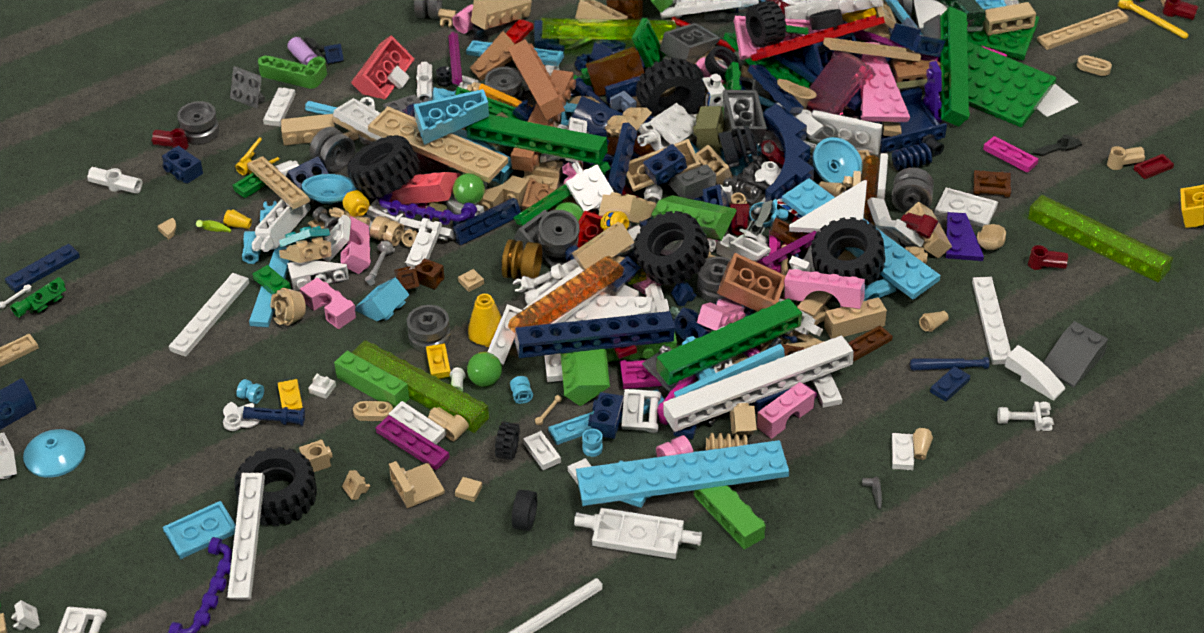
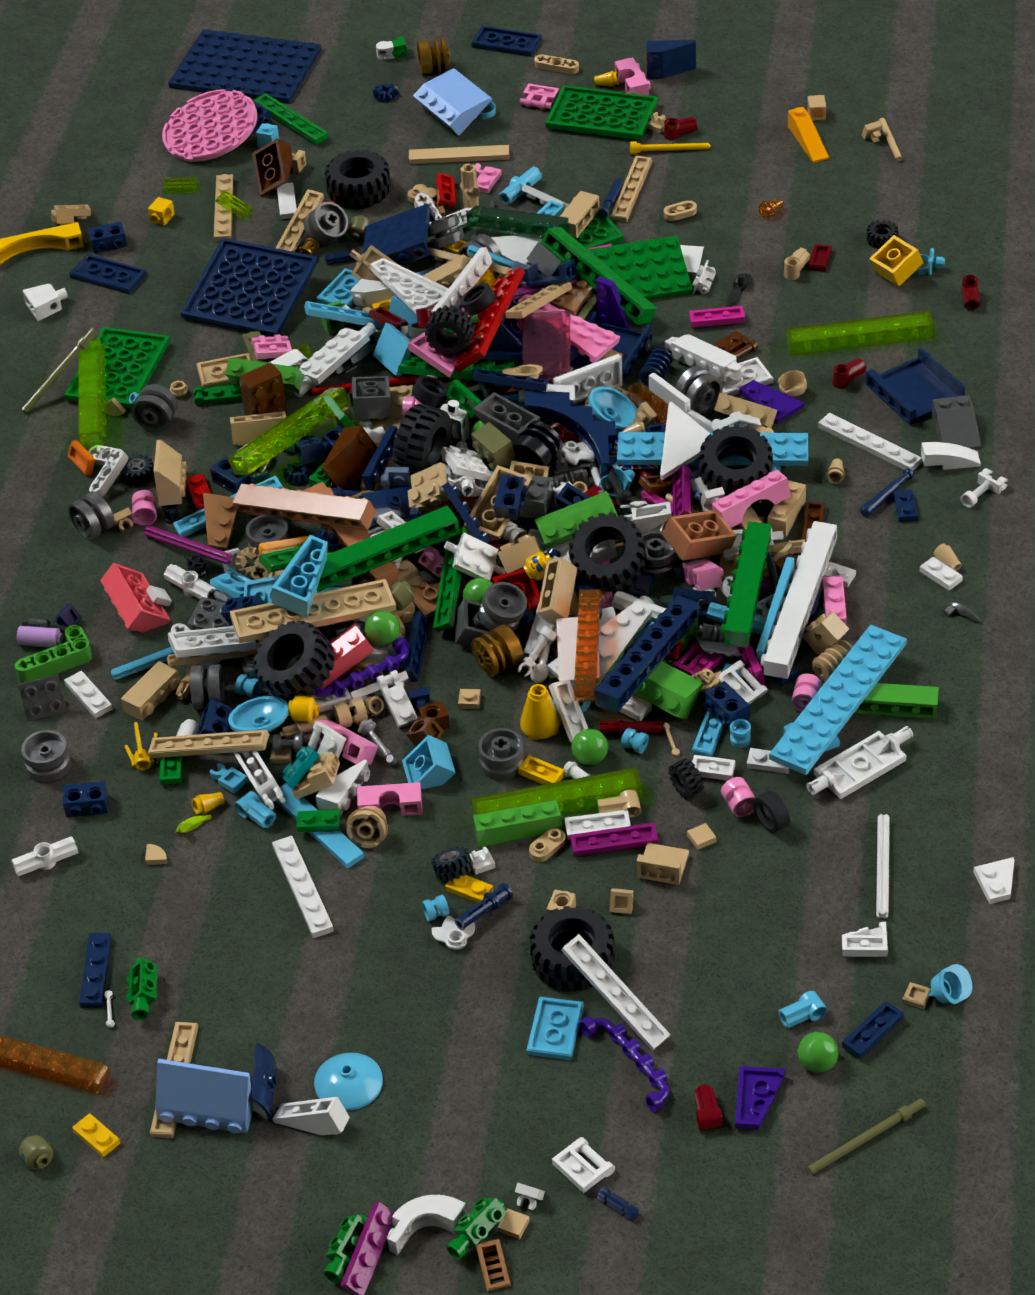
camera: 45 degrees left, 0 degrees up
(170, 138) = (44, 785): dark red piece -> none
(296, 371) = (452, 863): none -> black wheel
(440, 254) = (419, 697): none -> dark blue tile
(513, 178) = (402, 593): none -> olive head
(525, 478) = (738, 796): none -> bright pink wheel
(535, 381) = (618, 727): none -> dark red pin
(615, 385) = (708, 678): none -> tan hinge
(922, 225) = (752, 405): dark red piece -> none
(953, 175) = (698, 352): none -> white hinge
(1046, 118) = (704, 281): none -> white hinge
(1054, 24) = (612, 195): none -> dark blue piece
(1086, 303) = (913, 385): none -> dark blue panel
(1166, 106) = (770, 207): none -> clear orange cone

